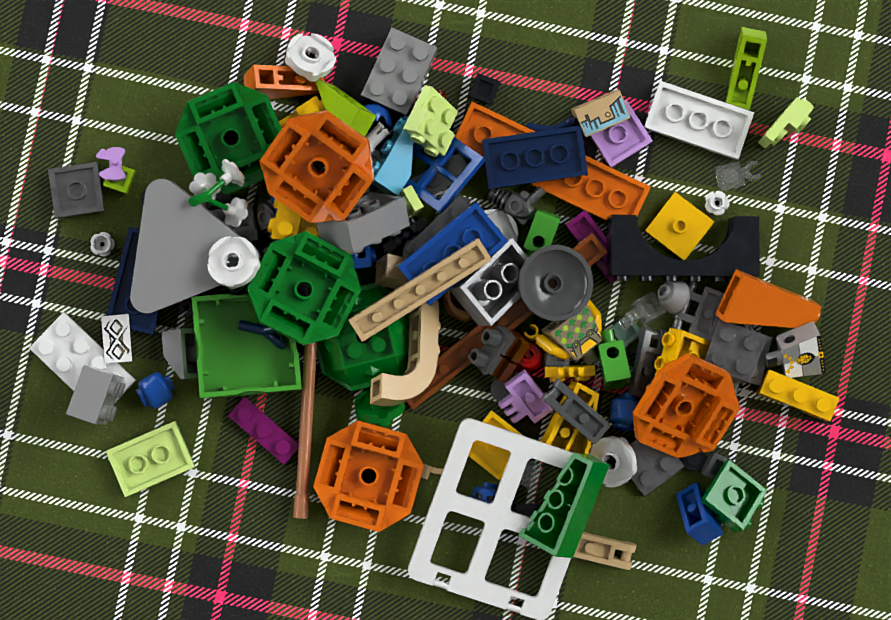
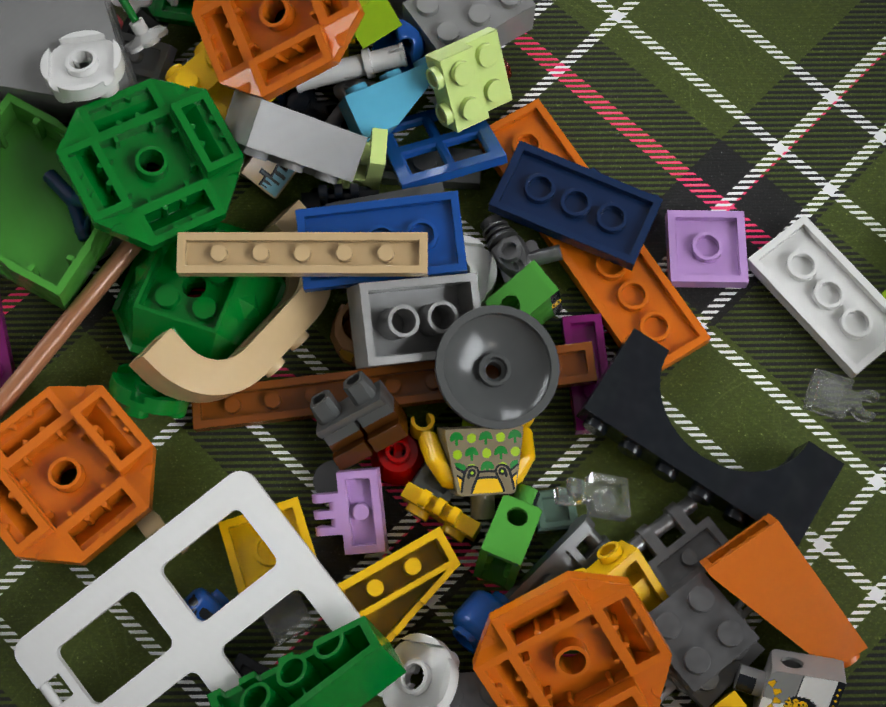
camera: 30 degrees right, 15 degrees down
(366, 262) = (259, 202): blue bracket -> none
(484, 89) = (564, 96): black plate -> none
(576, 412) = (409, 566): dark grey plate -> none
(601, 112) = (700, 206): panel -> none
(674, 296) = (654, 500): light grey cone -> none
(679, 226) = (719, 415): yellow plate -> none
(710, 202) = (783, 423): white plate -> none

